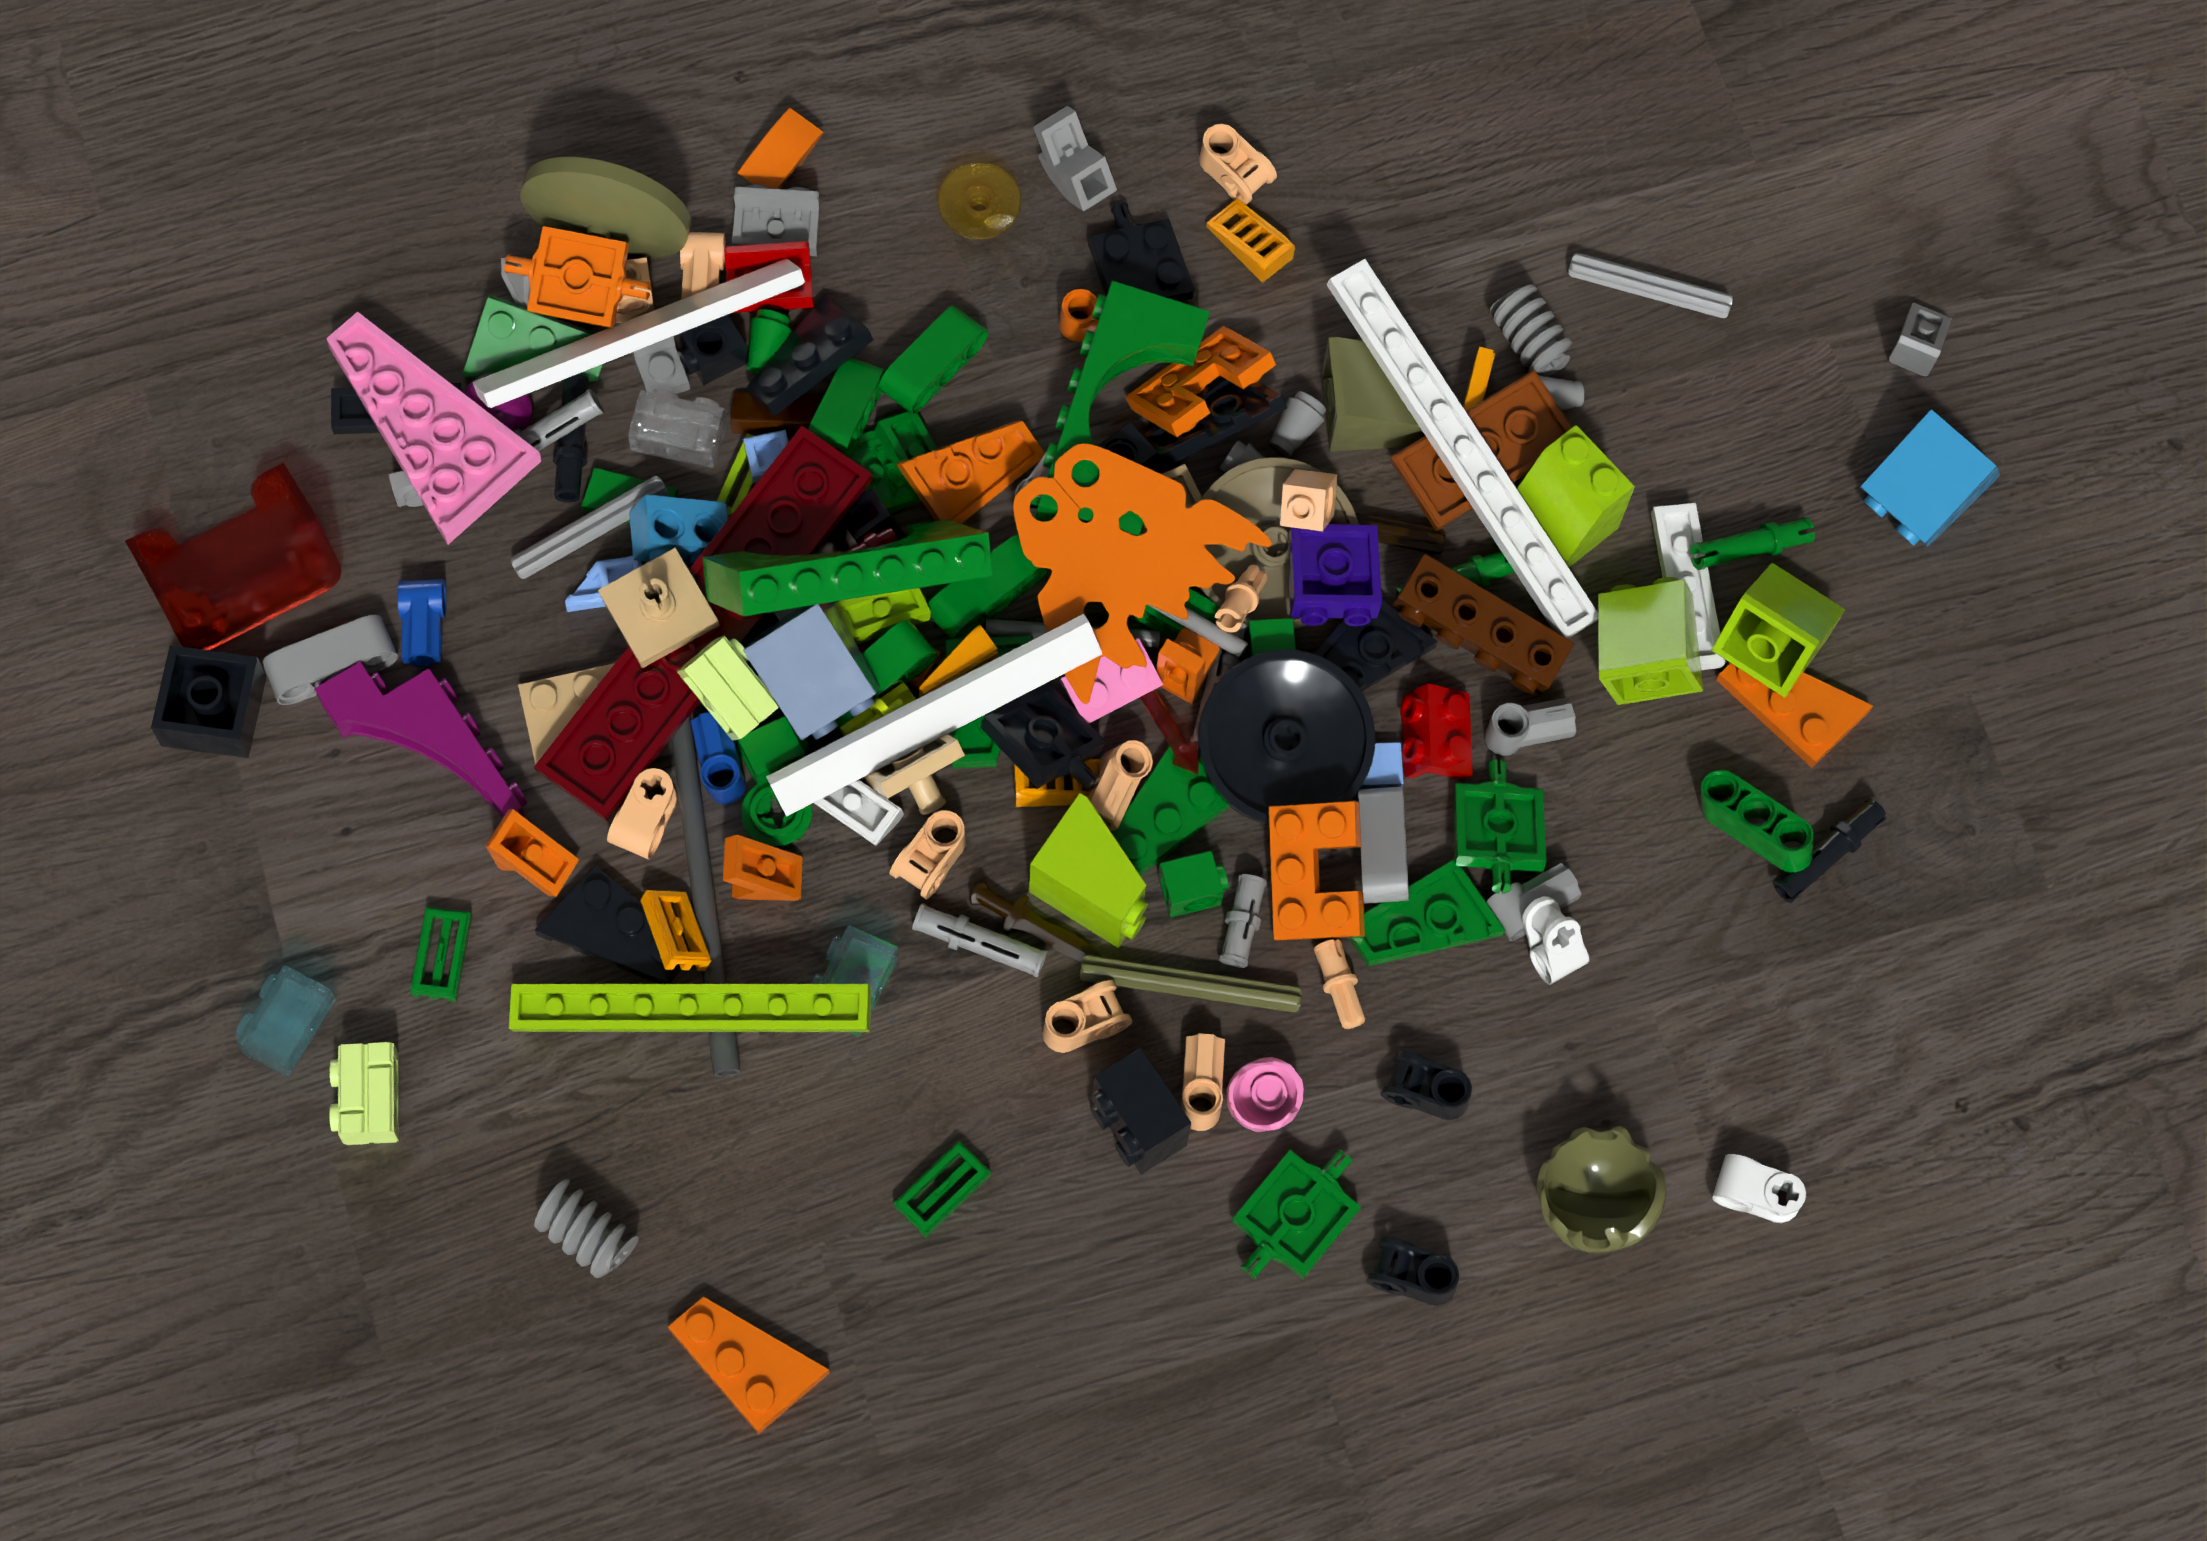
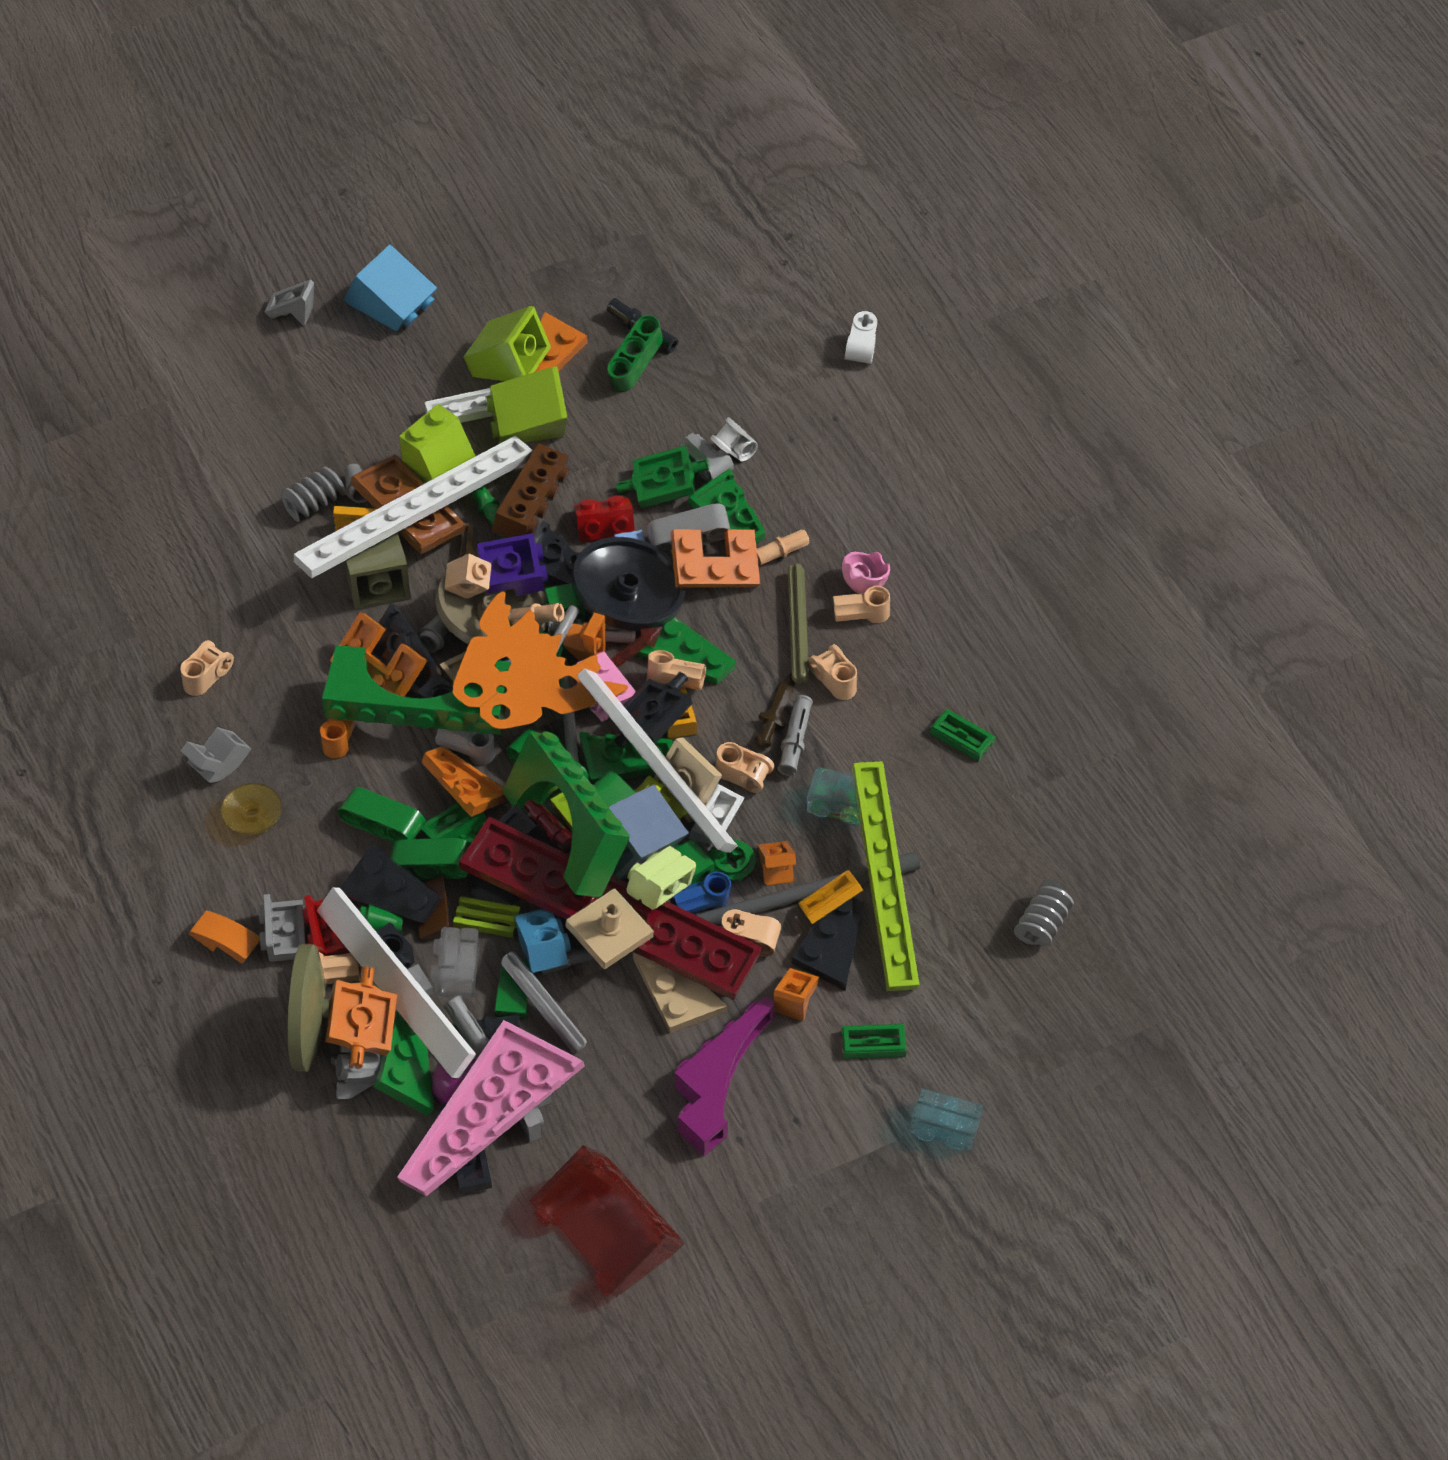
camera: 95 degrees left, 15 degrees down
(208, 701) = (725, 1211): black brick -> none
(313, 661) = (674, 1148): light grey beam -> none
(366, 1093) = (985, 1059): yellowish green brick -> none
(421, 609) = (623, 1097): blue piece -> none
(599, 576) = (580, 989): light blue tile -> none
(746, 1363) = (1101, 821): orange wing -> none
(763, 450) = (471, 902): light blue tile -> none
(969, 655) = (613, 757): light orange slope -> none
(1089, 876) = (742, 671): lime slope -> none
(1139, 1112) = (894, 626): black brick -> none
(1141, 257) = (287, 714): black plate -> none
(1192, 883) = (734, 627): green brick -> none
(1243, 921) = (751, 600): light grey pin -> none
(1260, 266) = (268, 637): light orange slope -> none
(1296, 1214) = (932, 552): green plate -> none
(1297, 423) = (409, 613): light grey cone -> none
(1410, 1271) = (954, 489): black piece -> none
(1423, 1086) = (838, 494): black piece -> none
(1532, 723) = (591, 471): light grey piece -> none
(1601, 1191) = (887, 399): olive piece -> none
(1650, 285) = (267, 442): light grey axle -> none
(1768, 539) = (444, 367): green pin -> none

